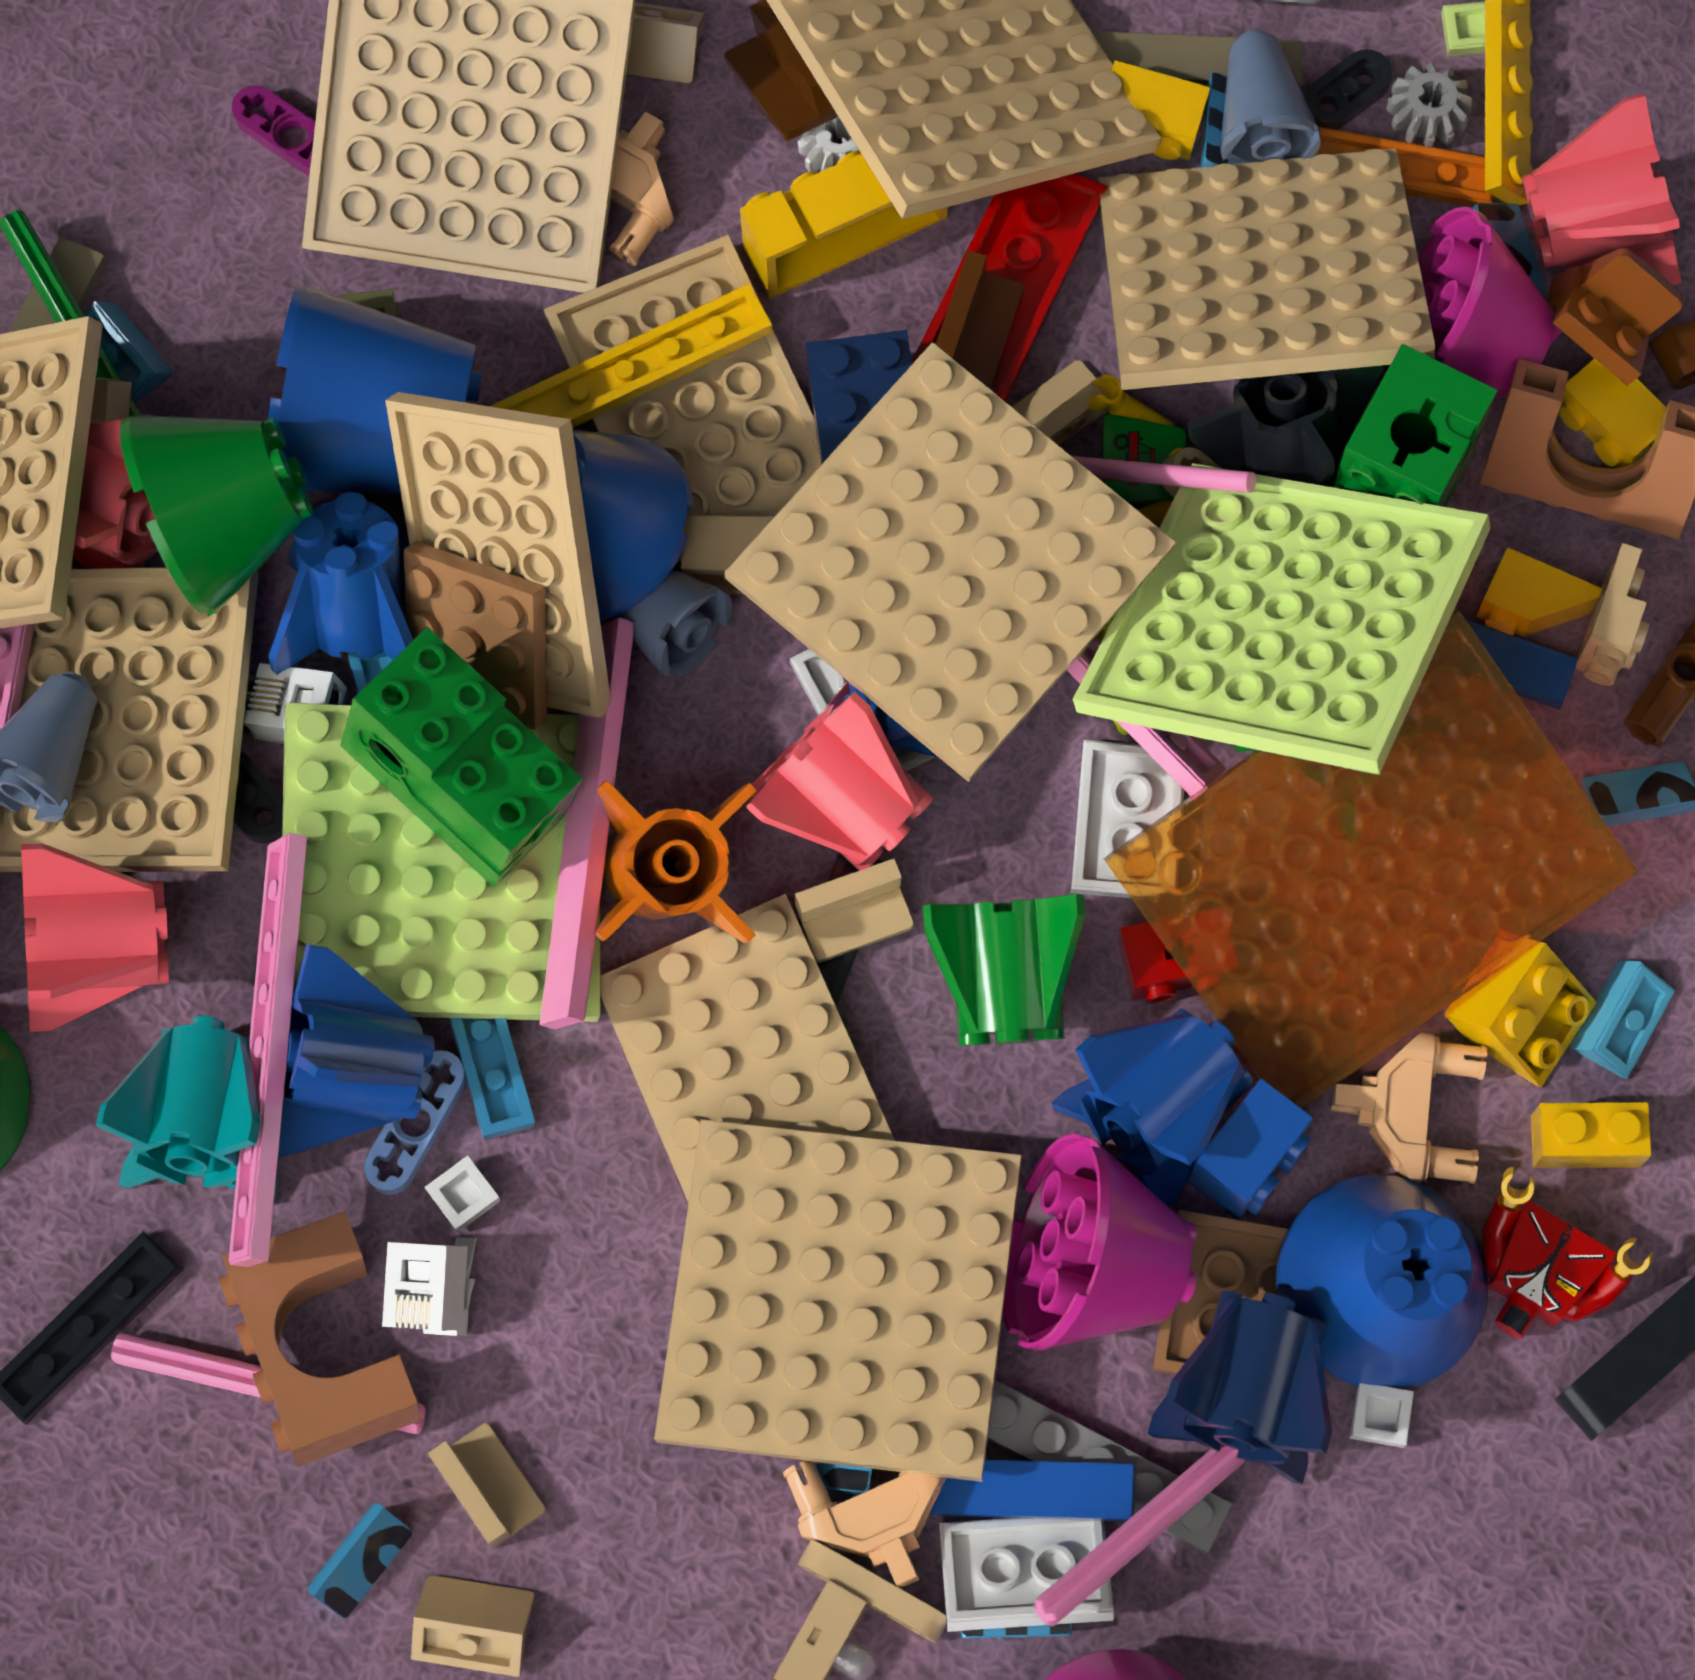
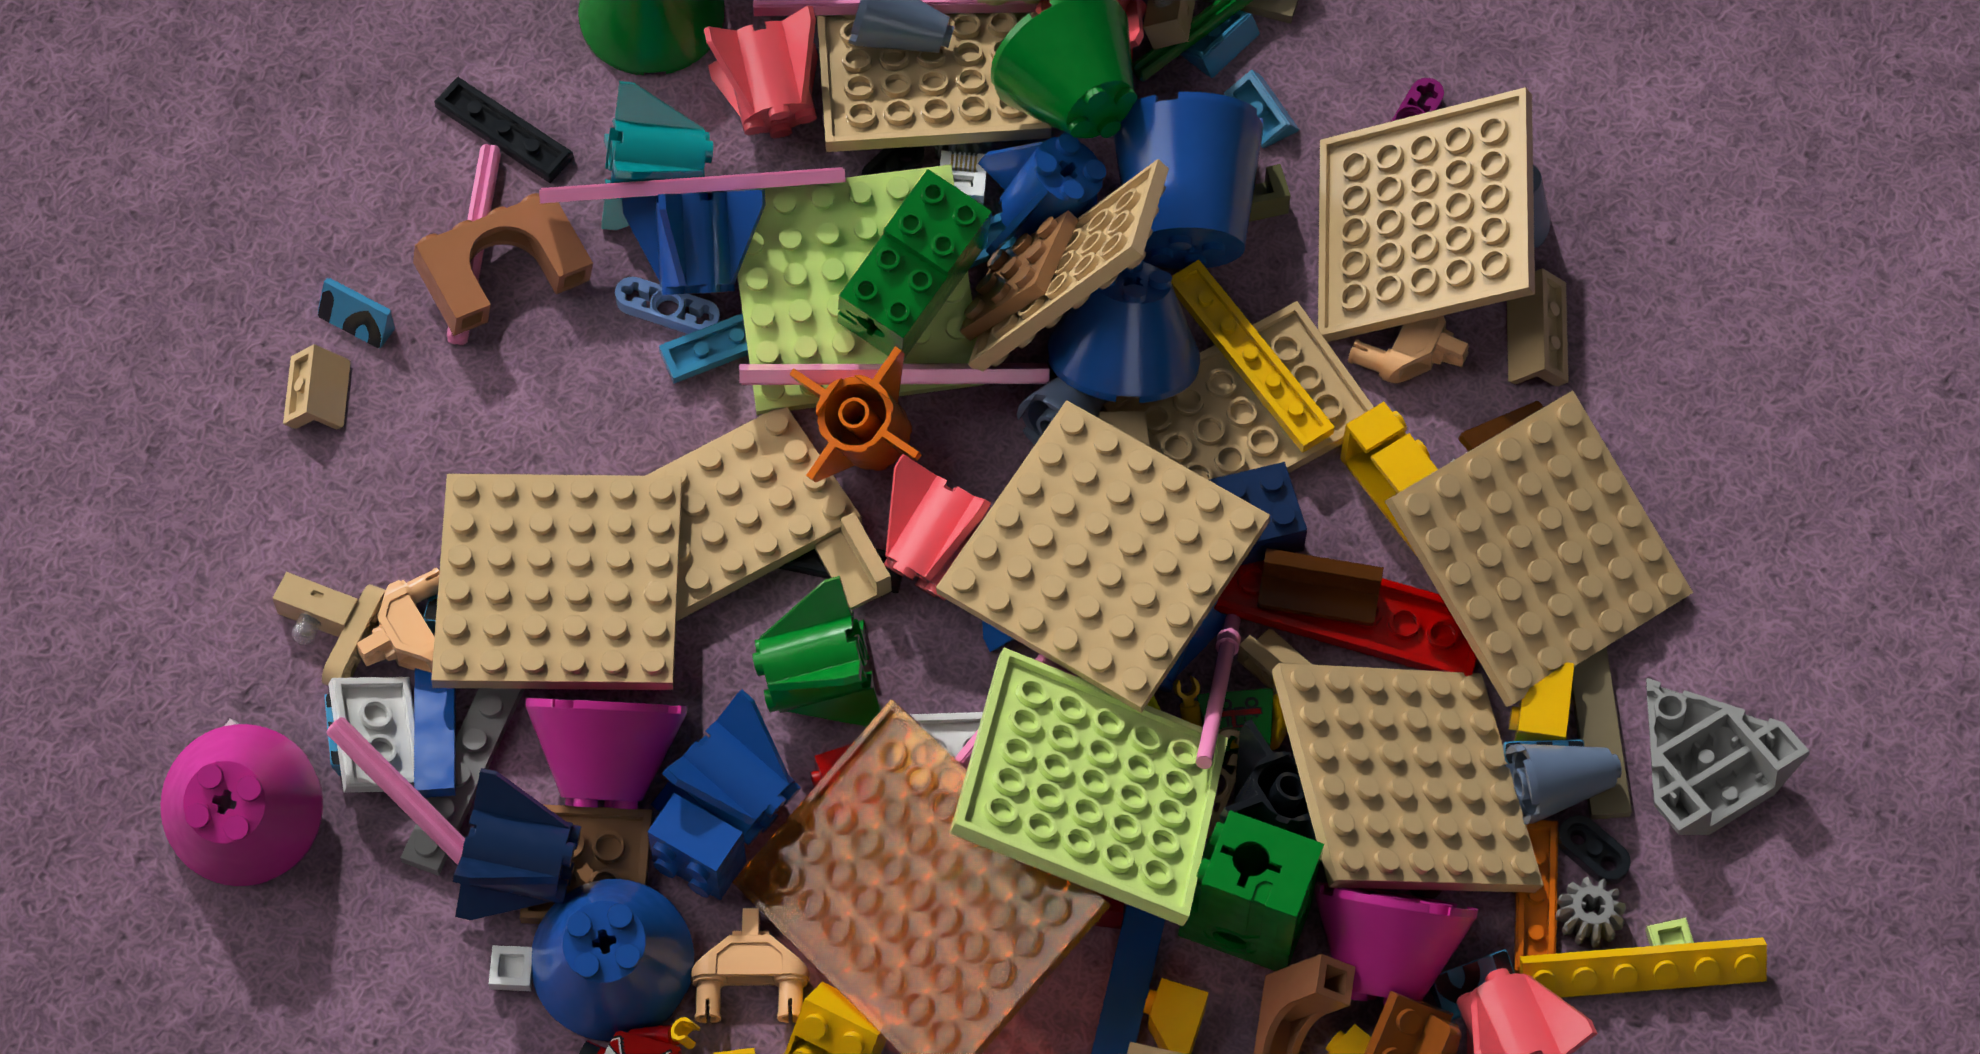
camera: 80 degrees right, 10 degrees down
(236, 317) = (1255, 91): none -> dark azure slope
(429, 1286) = (548, 328): white piece -> none
(462, 1194) = (617, 341): white plate -> none
(488, 1484) = (412, 384): tan panel -> none

